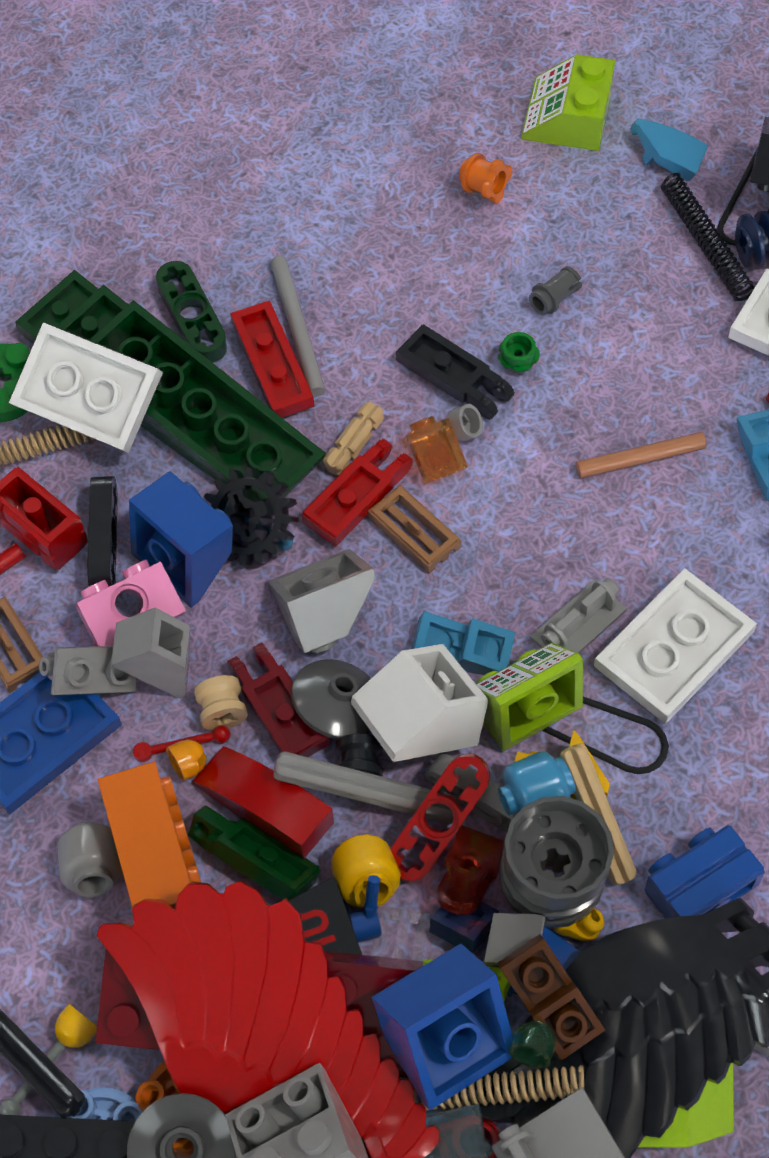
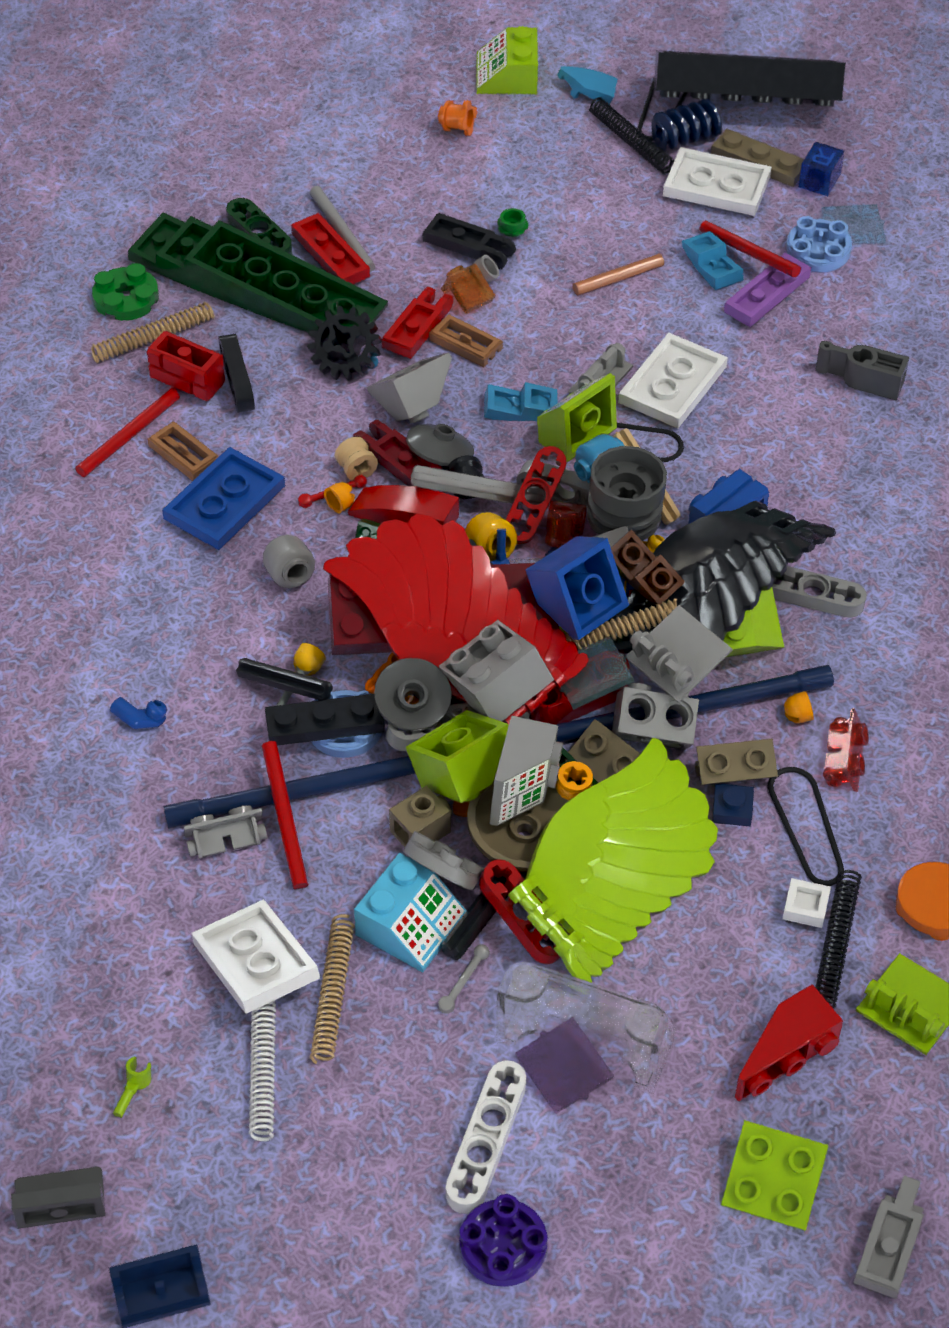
camera: 15 degrees left, 10 degrees down
(85, 671) = (257, 446): light grey hinge -> none
(86, 387) = (200, 276): white plate -> none
(147, 582) = (263, 425): bright pink brick -> none
(148, 833) = (325, 523): orange brick -> none
(154, 650) = (304, 425): light grey slope -> none
(182, 532) = (297, 360): blue slope -> none
(353, 438) = (405, 291): tan axle -> none
(422, 704) = (505, 430): white slope -> none
(533, 1045) = (635, 595): clear green hinge -> none
(547, 296) = (525, 185): dark grey pin -> none

